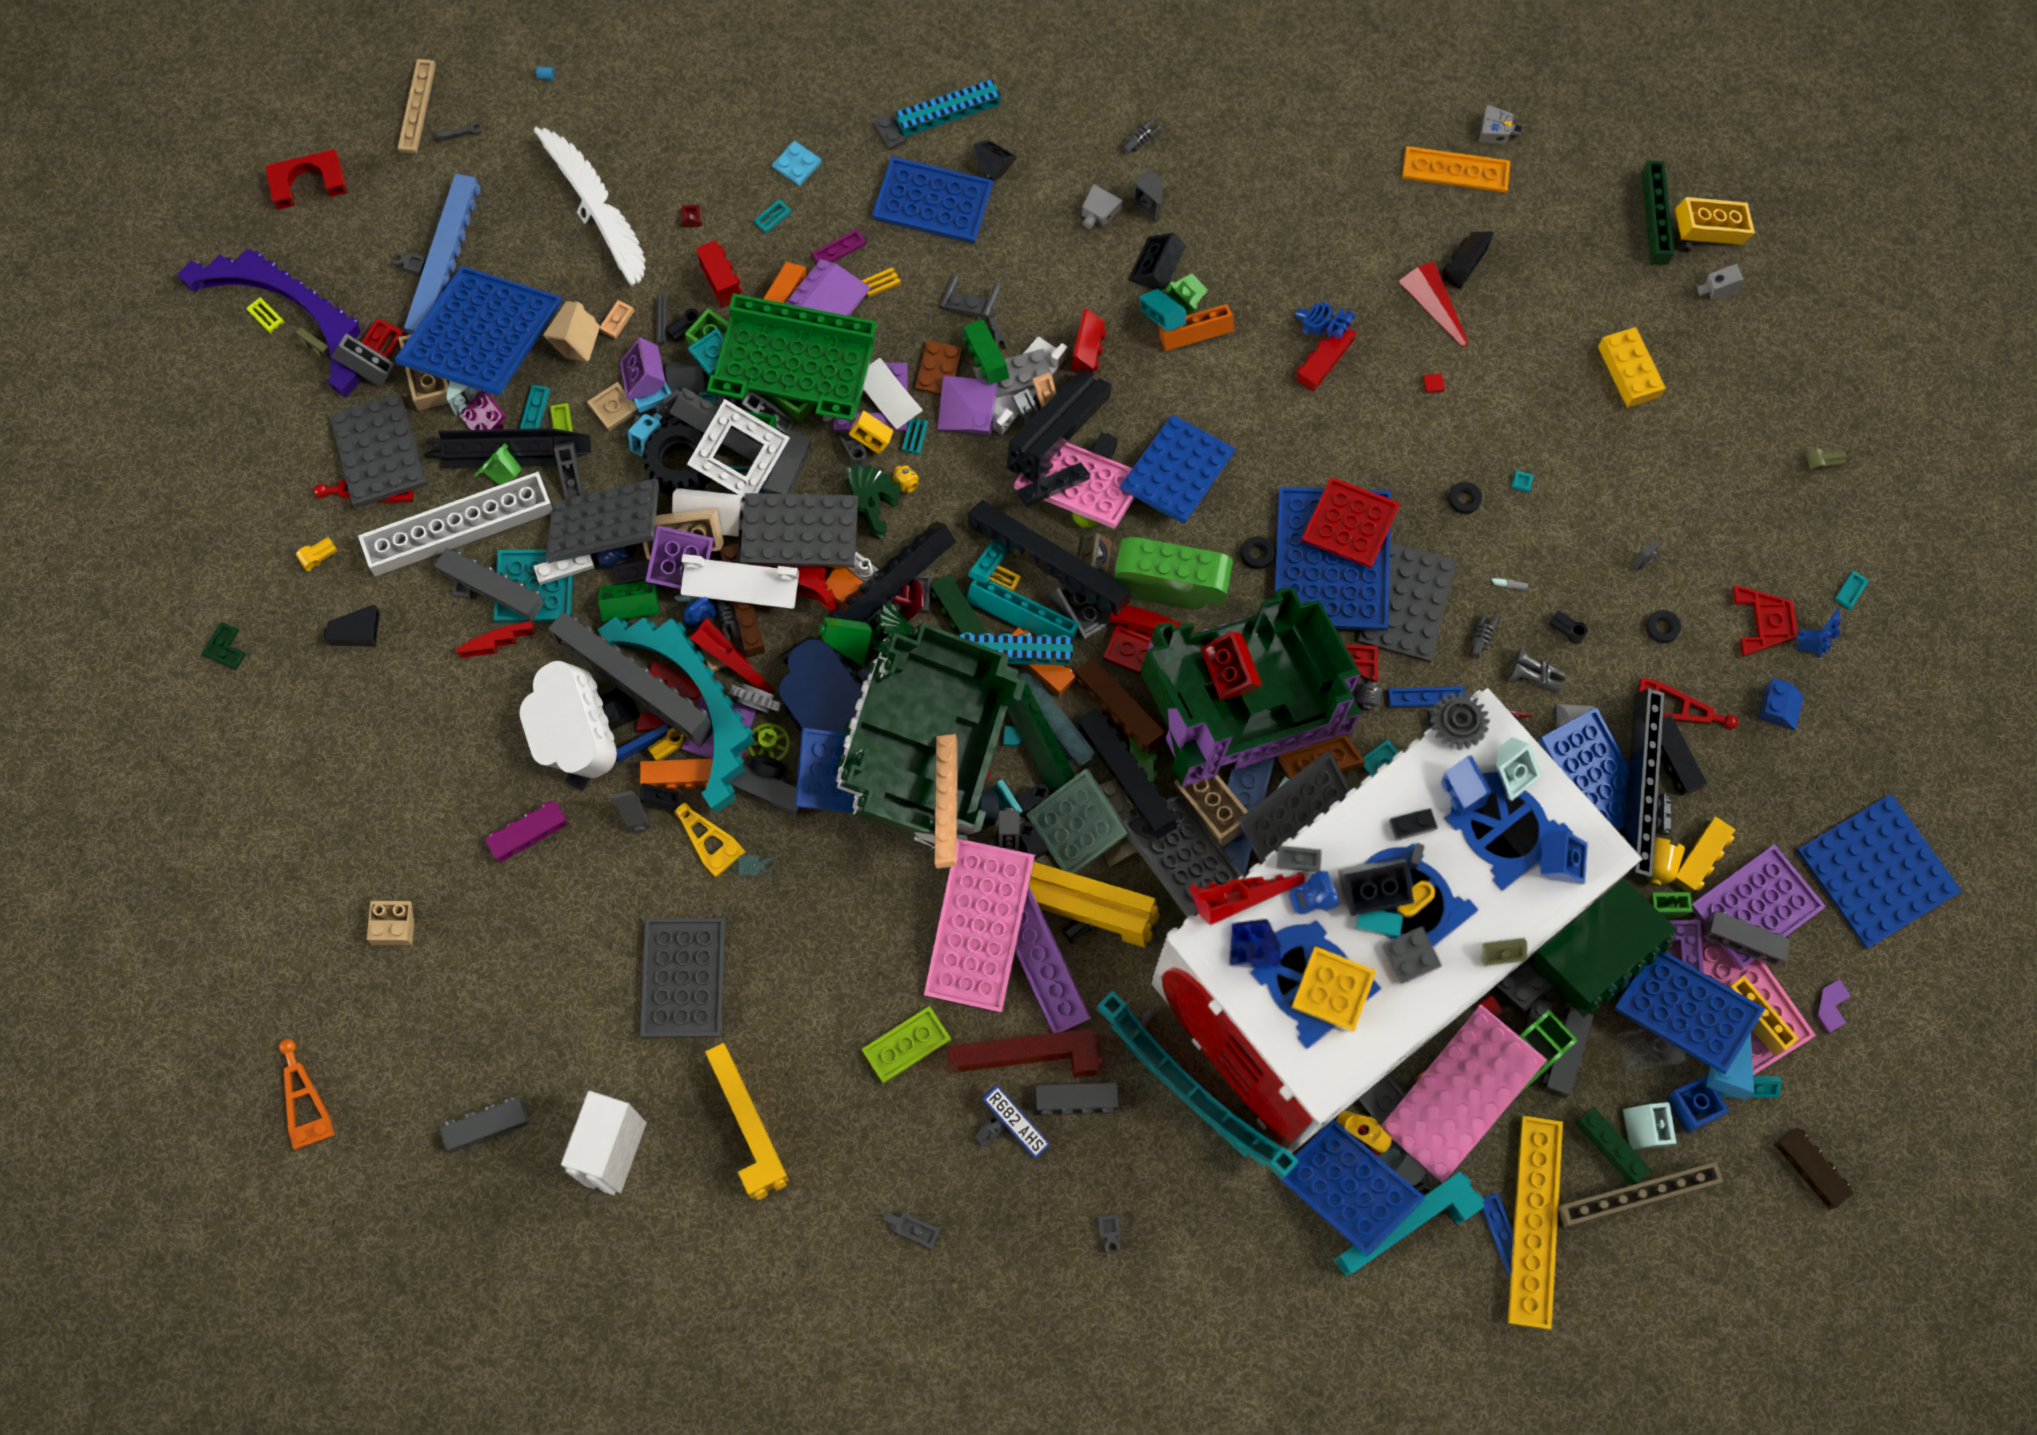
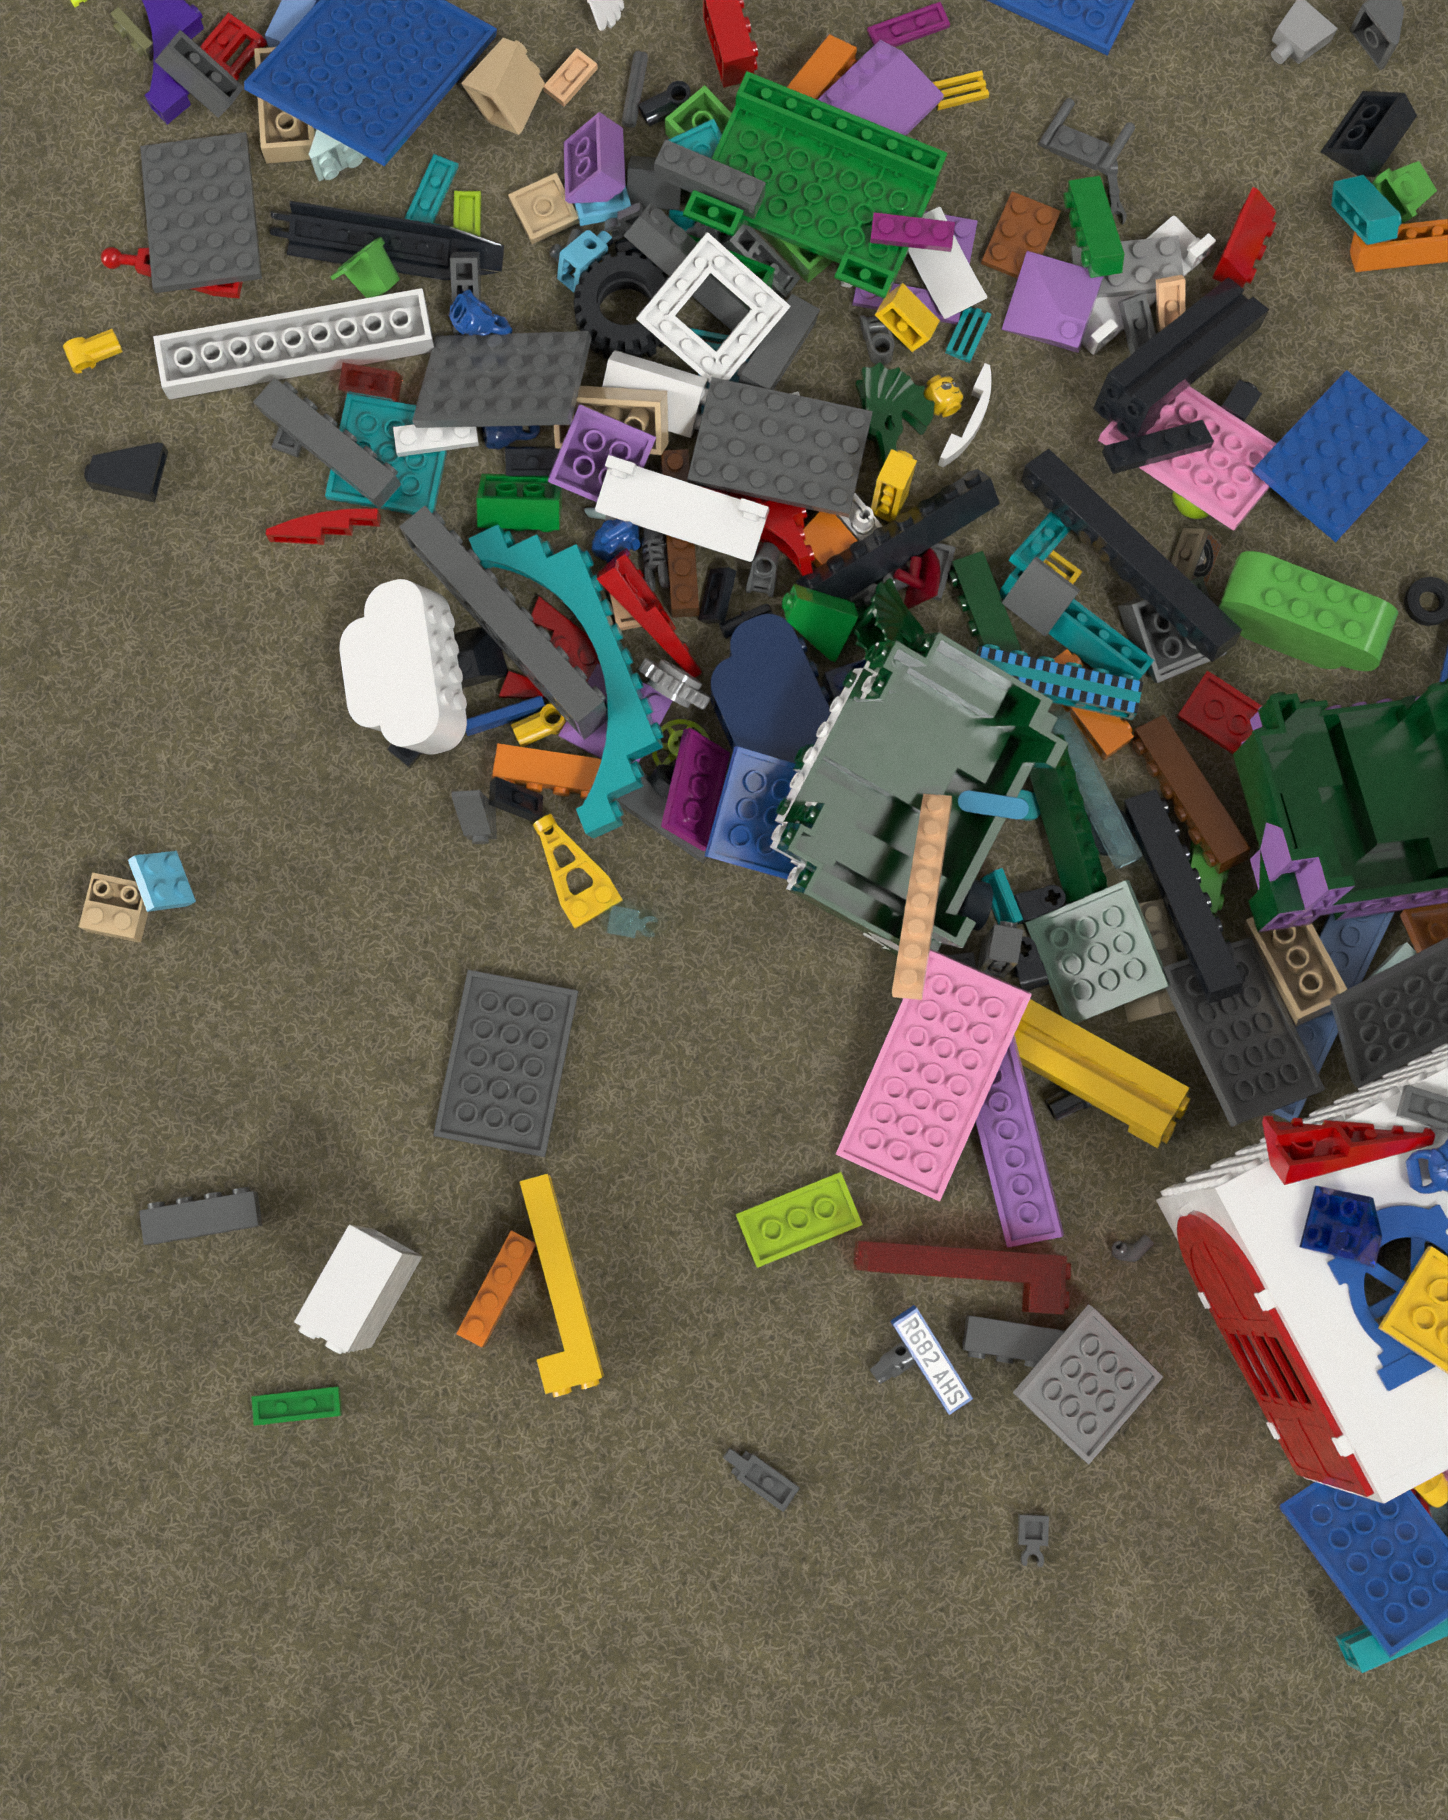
camera: 10 degrees right, 10 degrees up
(420, 898) = (161, 881): none -> medium azure plate
(483, 413) = (358, 186): magenta plate -> none
(513, 539) = (370, 382): none -> clear red brick
(526, 831) = (323, 812): magenta brick -> none
(574, 1244) = (296, 1405): none -> green plate
(578, 484) = (475, 317): none -> blue piece
(703, 1133) = (497, 1289): none -> orange brick
(709, 362) = (699, 173): none -> dark grey brick
(775, 636) = (717, 595): none -> black plate
(781, 765) = (695, 788): none -> magenta tile
(803, 616) = (763, 573): none -> dark grey piece
(863, 376) = (912, 232): none -> magenta plate
(880, 540) = (893, 485): none -> yellow brick
(920, 509) = (956, 444): none -> white slope
(985, 735) = (993, 804): none -> dark azure piece
(993, 595) = (1040, 596): none -> dark grey slope
(1126, 1116) = (1088, 1384): none -> light grey plate
(1140, 619) = (1250, 674): red slope -> none
(1229, 1126) = (1219, 1415): teal arch -> none
(1231, 666) = (1363, 768): red slope -> none

